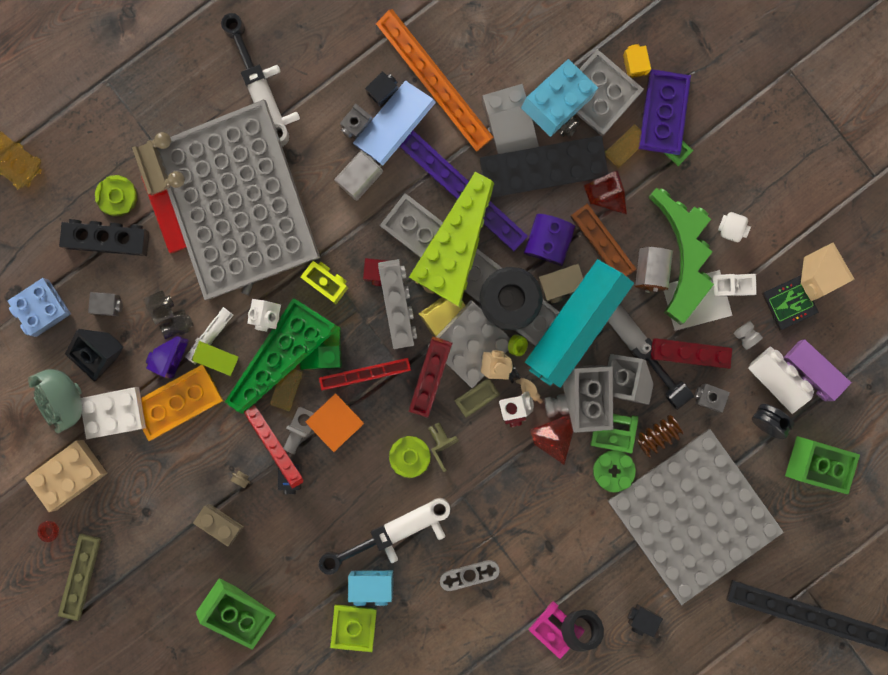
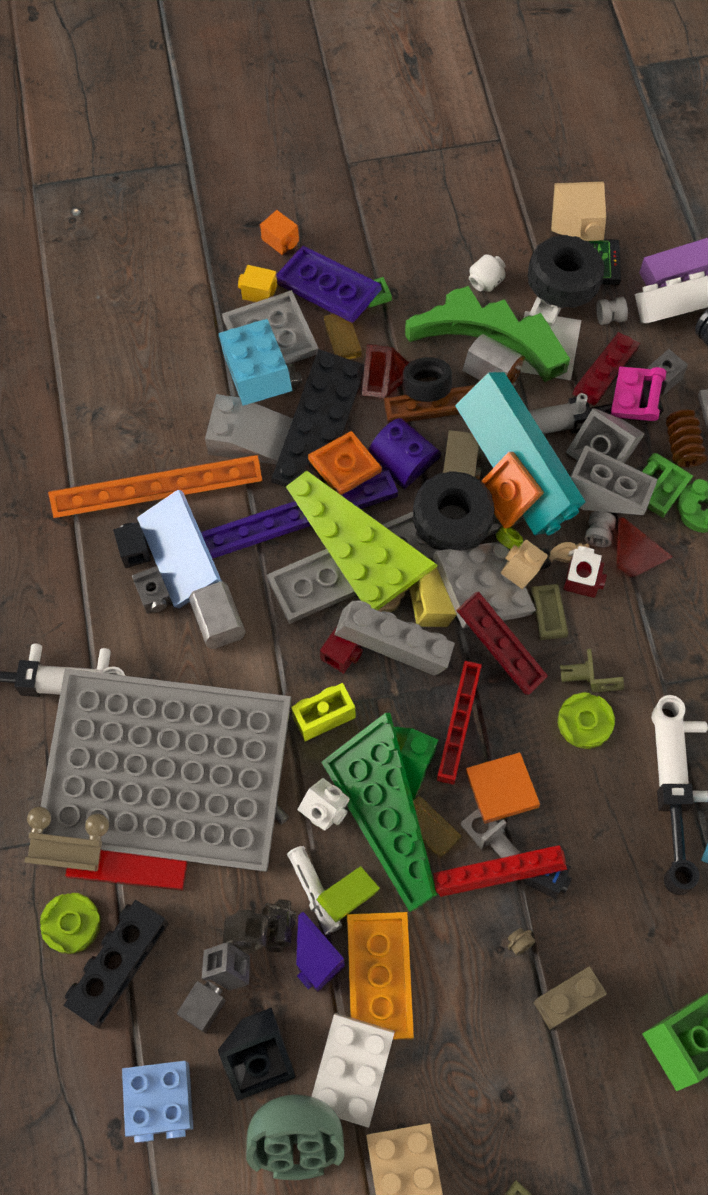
camera: 65 degrees left, 20 degrees down
(133, 306) = (226, 966): none -> flat silver brick
(515, 203) = (345, 463): none -> orange tile
(547, 329) = (511, 489): none -> orange tile
(627, 220) = (430, 390): none -> black tyre
(676, 379) = (629, 393): none -> dark pink plate
(692, 53) = (279, 232): none -> orange brick
(777, 283) = (565, 271): none -> black tyre

